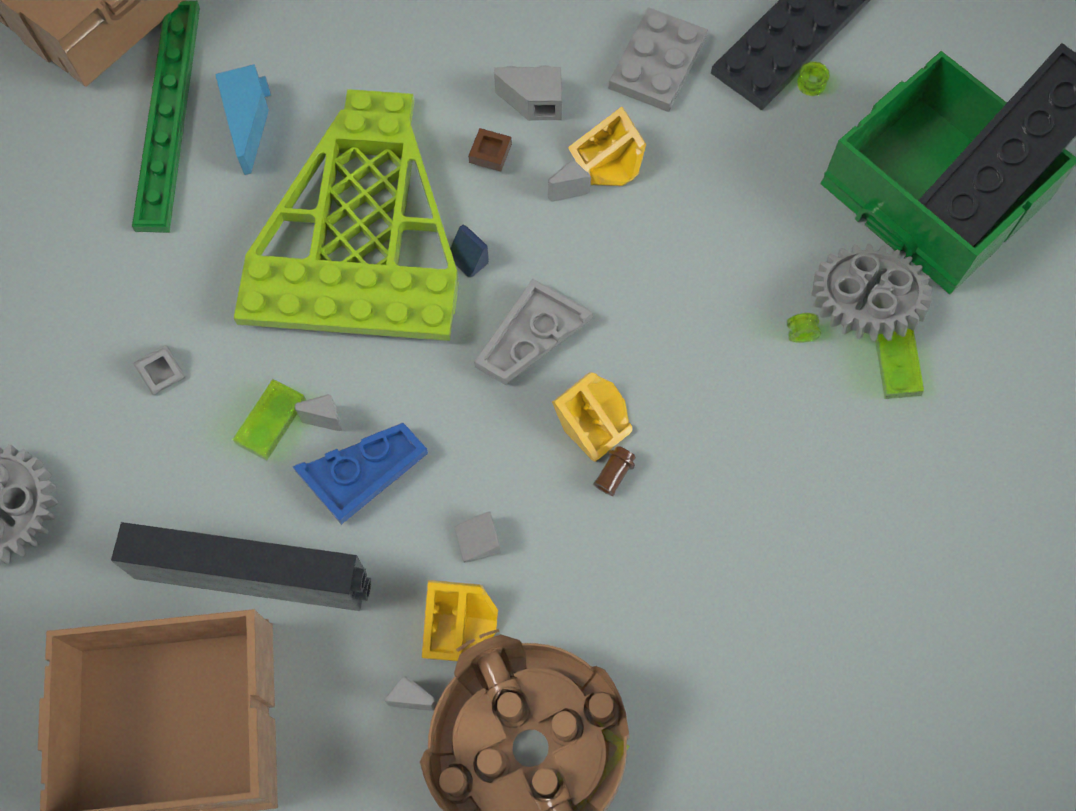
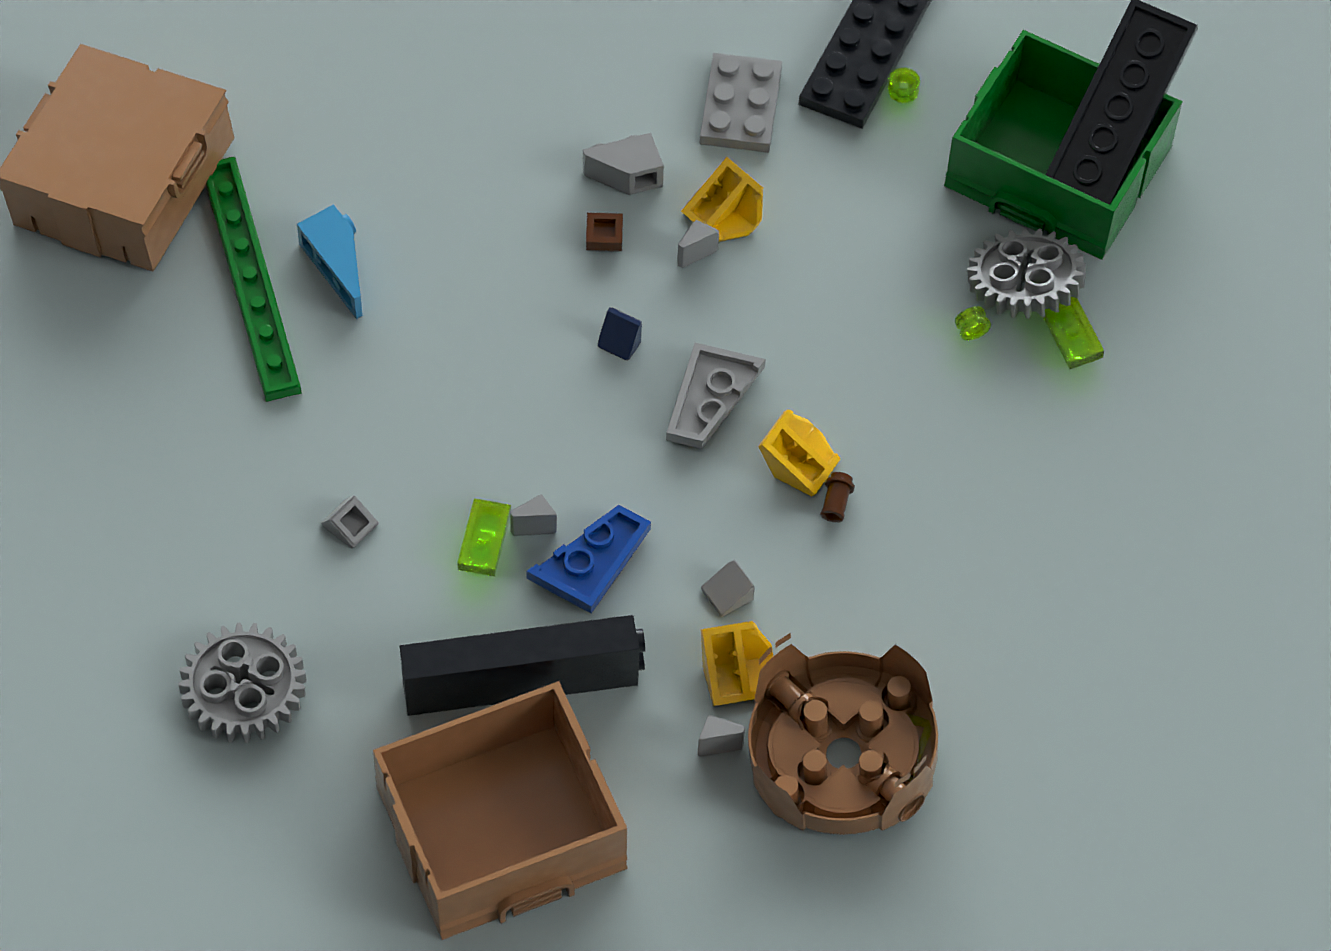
camera: 20 degrees left, 10 degrees down
(348, 294) = (514, 401): lime wing -> none

